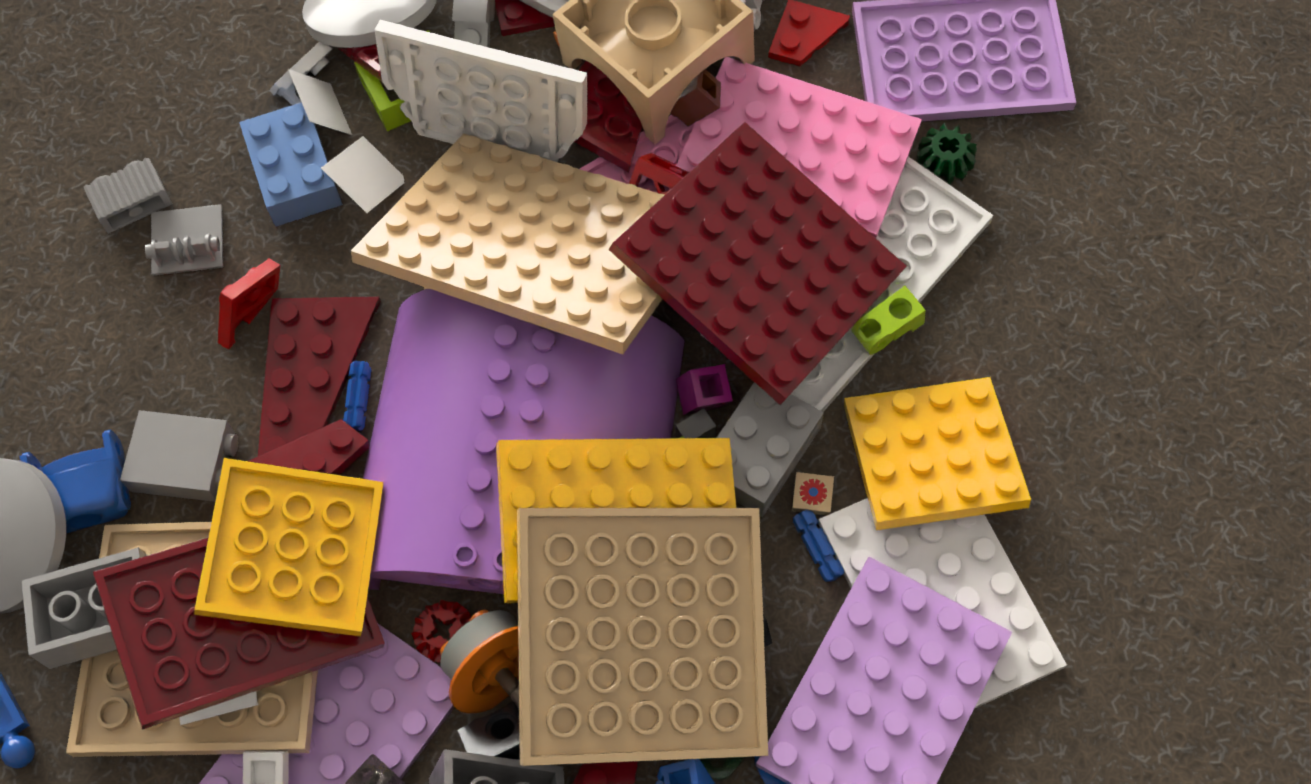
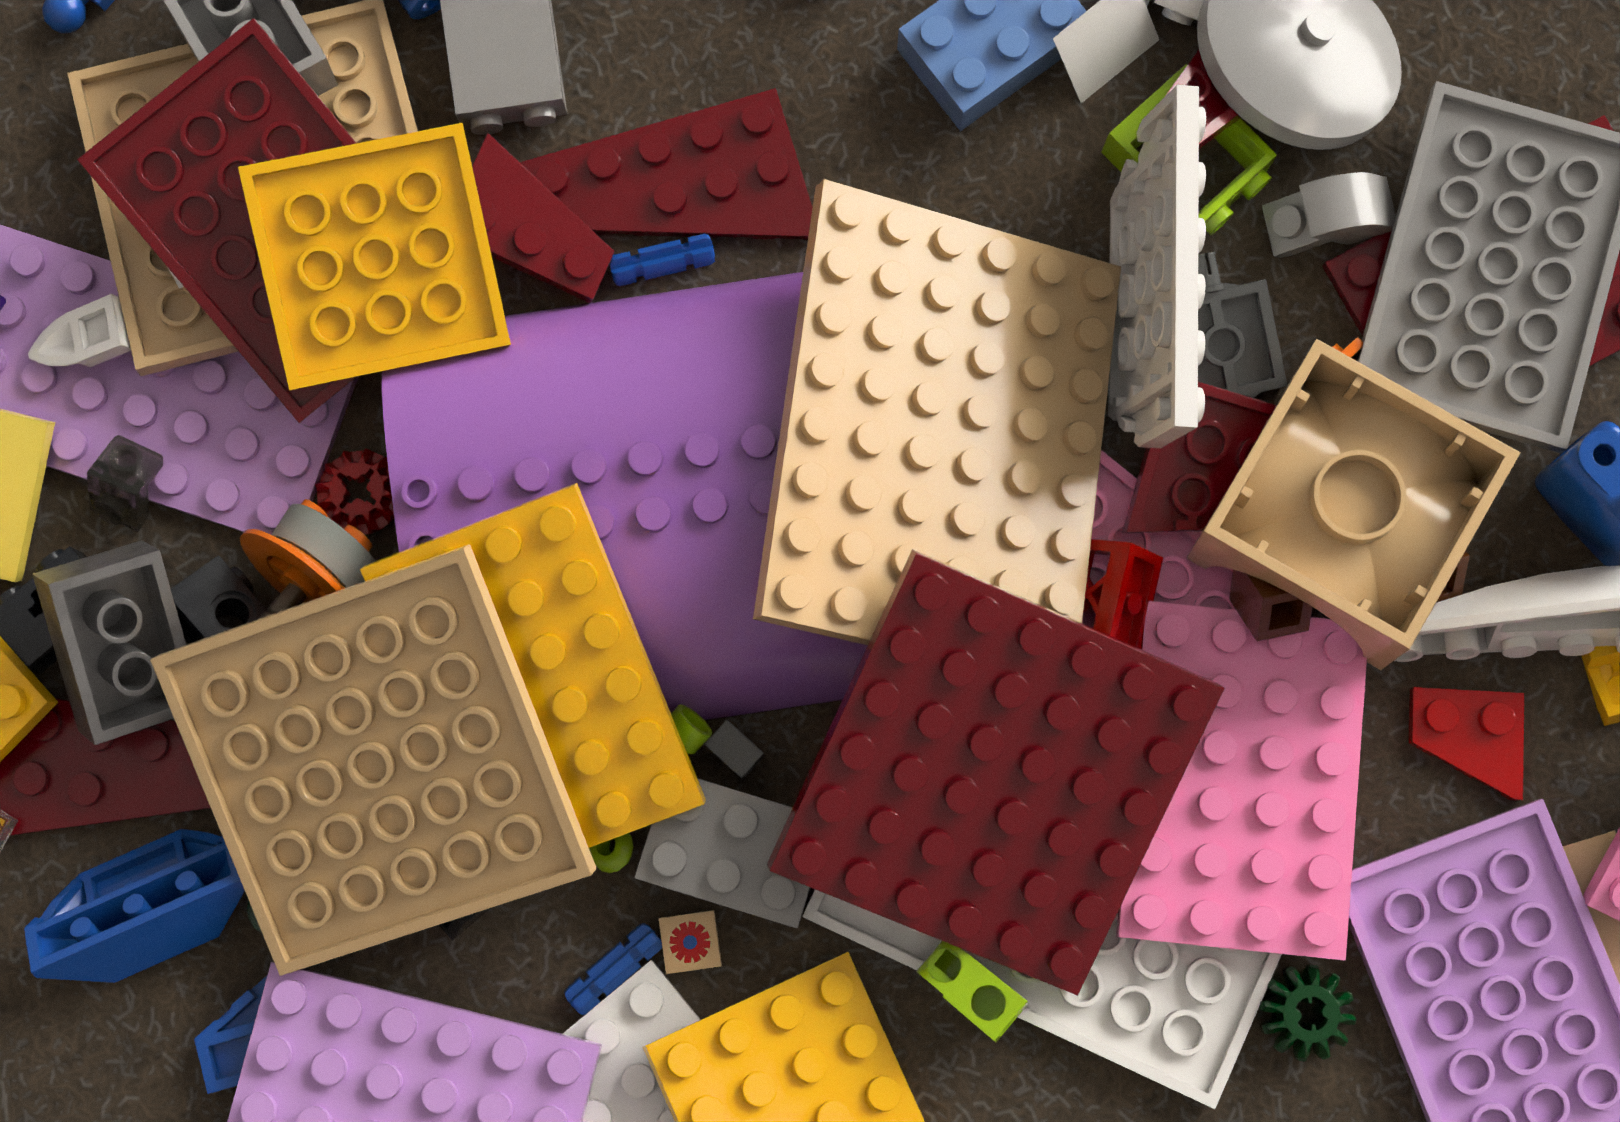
camera: 75 degrees right, 15 degrees up
(246, 299) = (759, 54): red wing -> none
(364, 174) = (1005, 146): white sticker -> none
(704, 389) = (790, 744): magenta brick -> none

